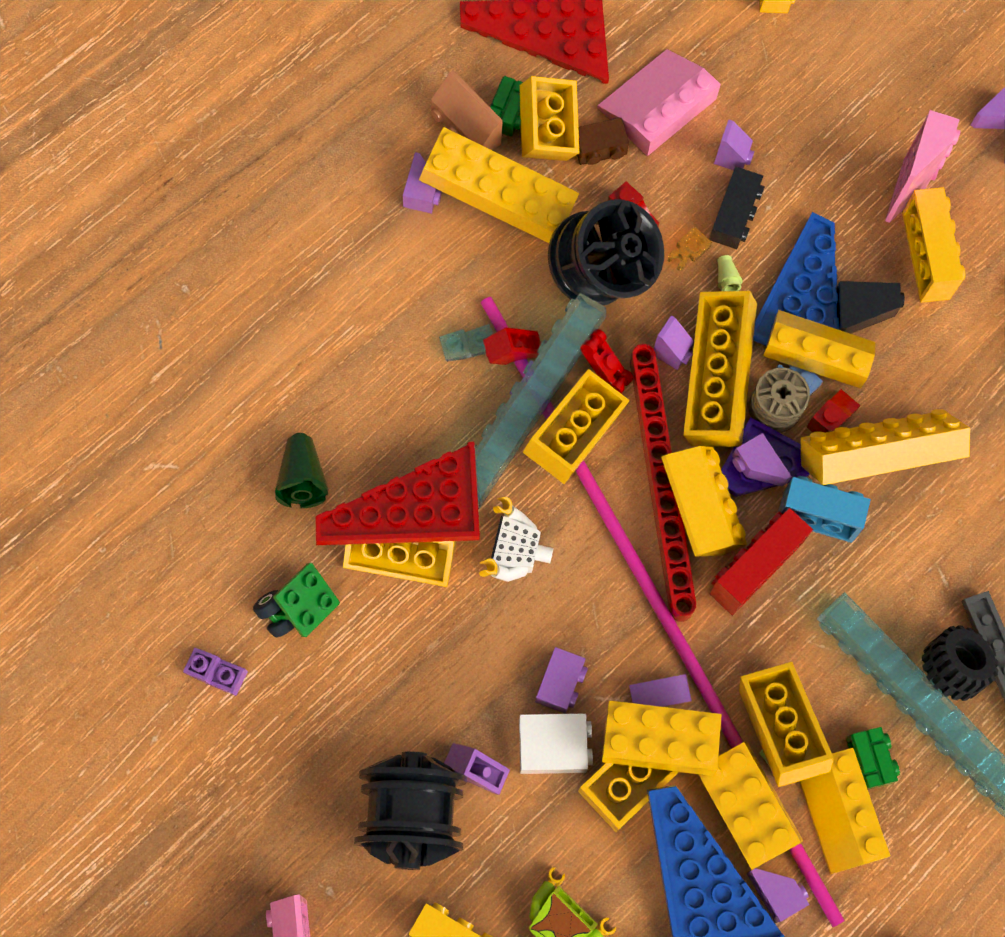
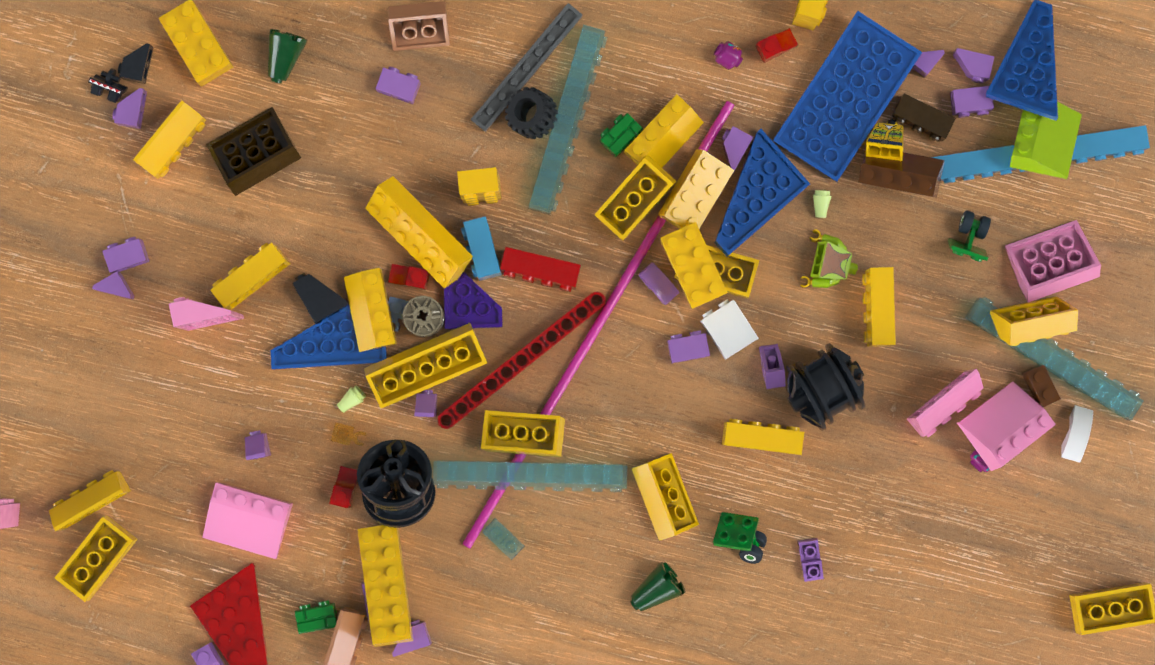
camera: 115 degrees left, 15 degrees up
(396, 699) = (763, 438): none -> yellow brick
(423, 506) = (639, 497): red wing -> none
(511, 345) = (491, 507): red arch -> none
(514, 545) = (622, 425): white torso -> none
(549, 118) = (314, 581): yellow brick -> none
(602, 141) = (305, 539): reddish brown brick -> none
(605, 361) = (467, 440): red plate -> none
(704, 501) = (523, 325): yellow slope -> none
(737, 208) = (298, 420): black brick -> none
(760, 462) = (474, 306): medium lavender slope -> none
(905, 542) = (479, 186): none -> yellow brick

